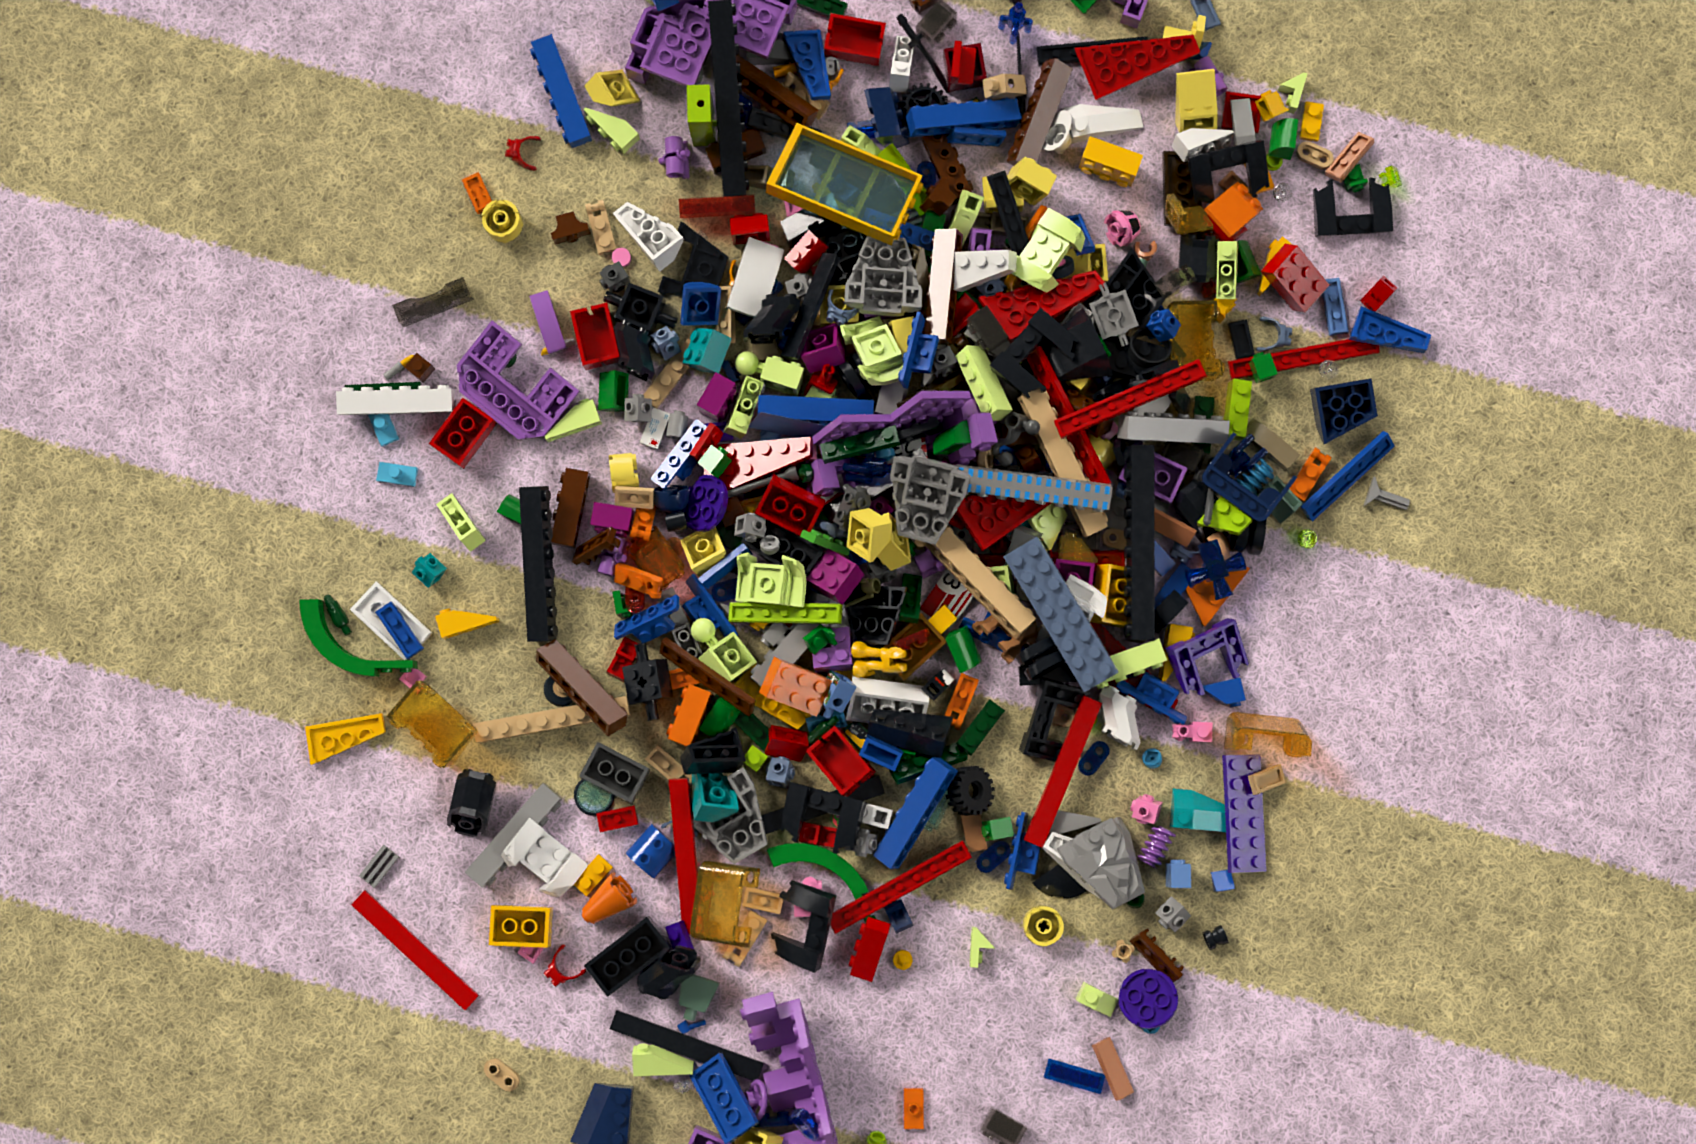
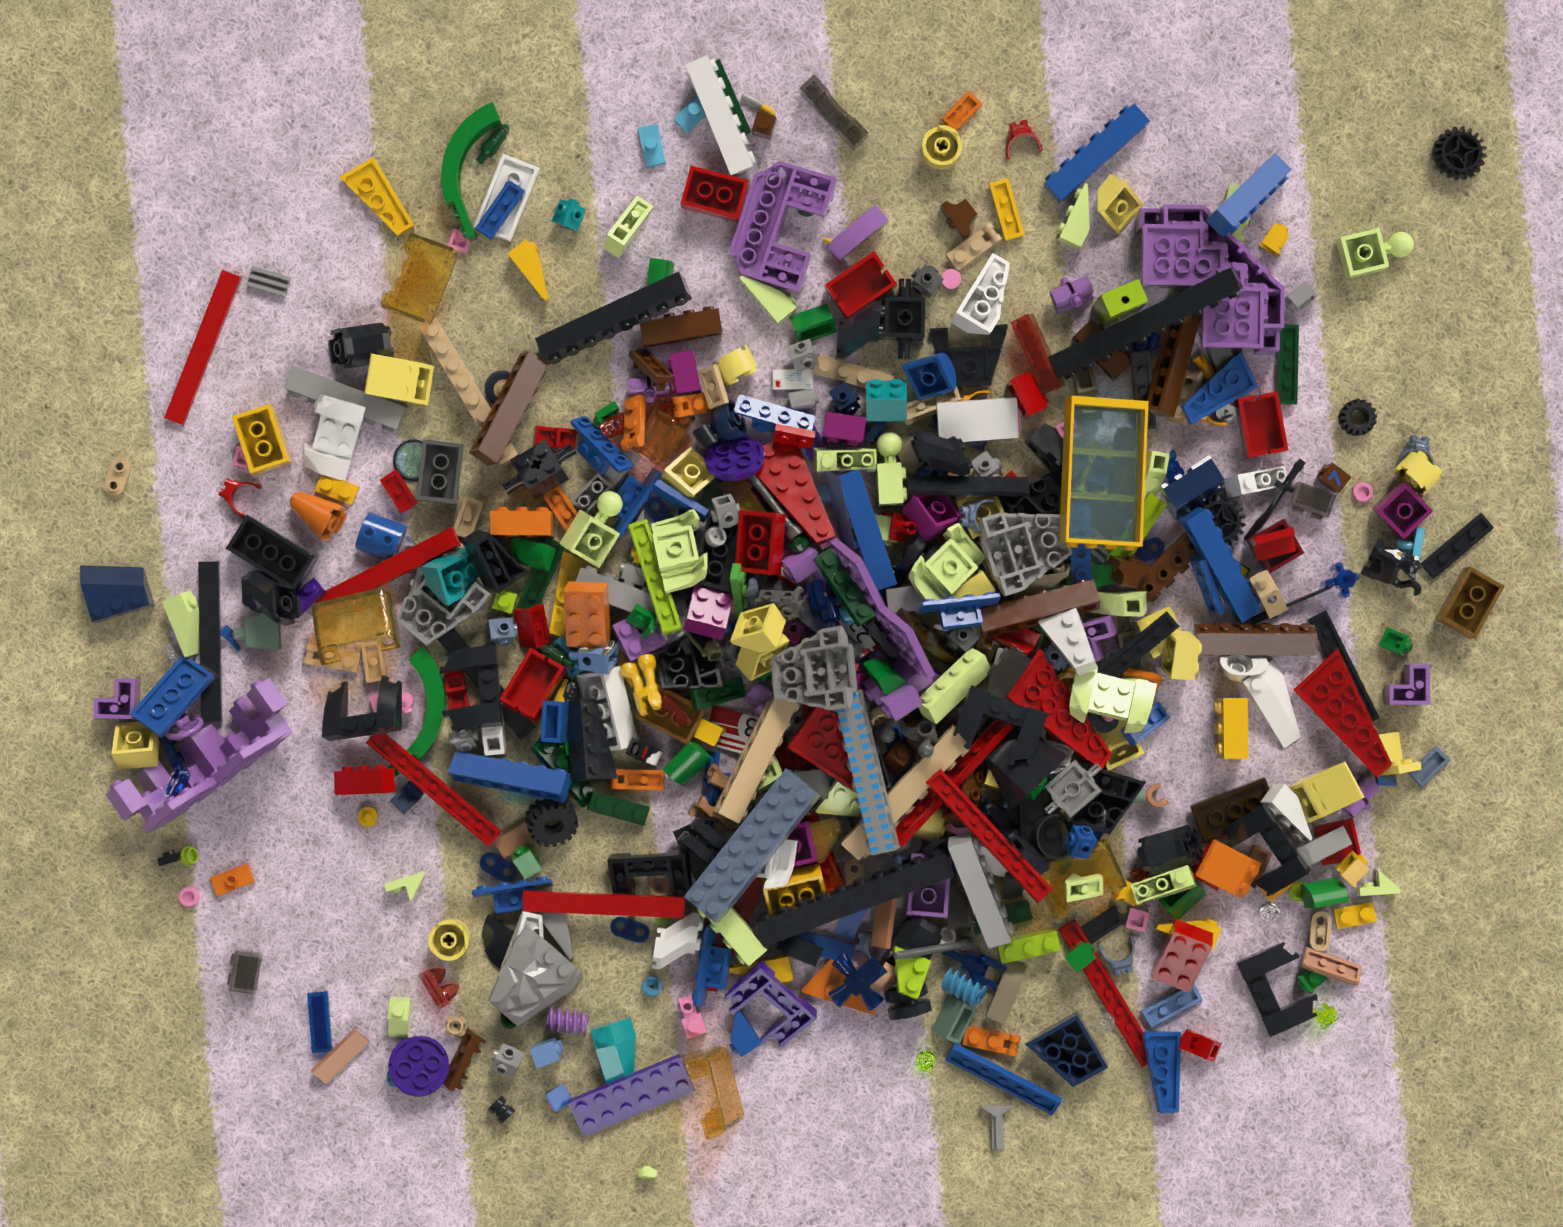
camera: 70 degrees right, 5 degrees up
(516, 777) = (399, 379): none -> light yellow slope
(579, 186) = (1006, 209): none -> yellow plate
(665, 343) = (880, 356): sand blue brick -> none
(691, 387) = (844, 399): none -> dark blue brick
(707, 676) = (565, 525): reddish brown tile -> none
(715, 460) = (779, 451): brick -> none
(806, 252) = (1023, 460): red brick -> none
(1090, 953) = (440, 994): none -> clear red tile
(1122, 227) = (1170, 765): bright pink cone -> none
(1152, 808) = (599, 998): bright pink brick -> none
(1175, 281) = (1129, 837): clear smoke brick -> none
(1186, 219) = (1201, 826): clear yellow bracket -> none
(1203, 340) = (1083, 887): none -> yellowish green slope
(1247, 308) = (1137, 919): none -> bright pink tile
(1254, 506) = (934, 993): dark blue windscreen -> none
(1266, 779) = (672, 1105): tan tile -> none
(1319, 826) = (647, 1173): none -> yellowish green tile

